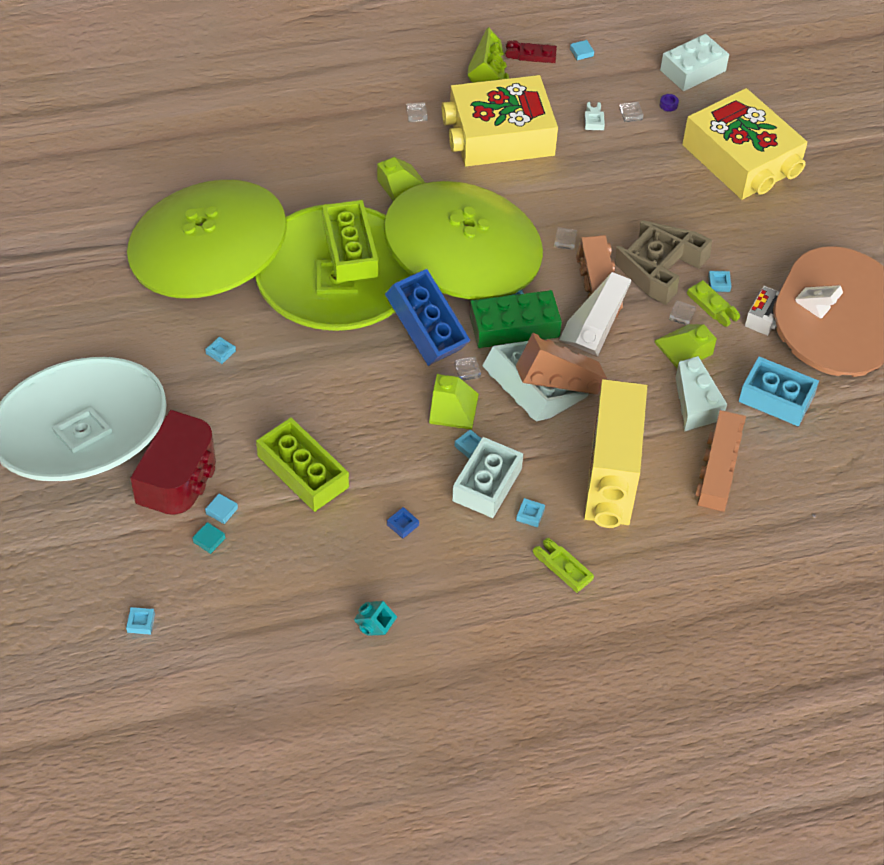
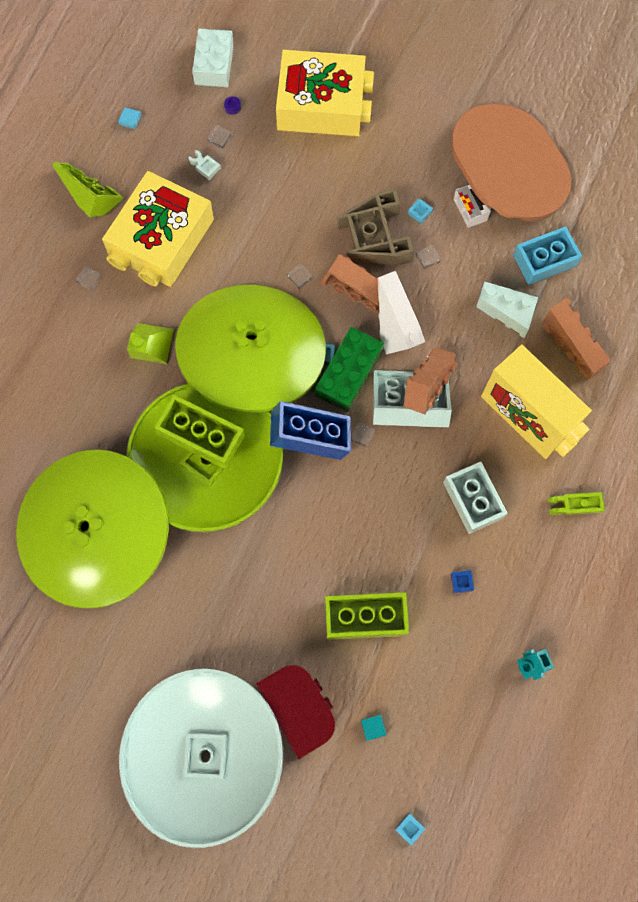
camera: 50 degrees left, 20 degrees up
(220, 350) = (205, 594): medium azure tile -> none
(221, 508) = (354, 700): medium azure tile -> none
(453, 403) = (388, 470): lime slope -> none
(467, 443) = (430, 484): medium azure tile -> none
(530, 512) = (517, 490): medium azure tile -> none
(531, 52) = (100, 152): dark red hinge -> none
(687, 343) = (458, 277): lime slope -> none
(713, 303) = (436, 231): lime hinge -> none
(819, 299) = (501, 168): white slope -> none

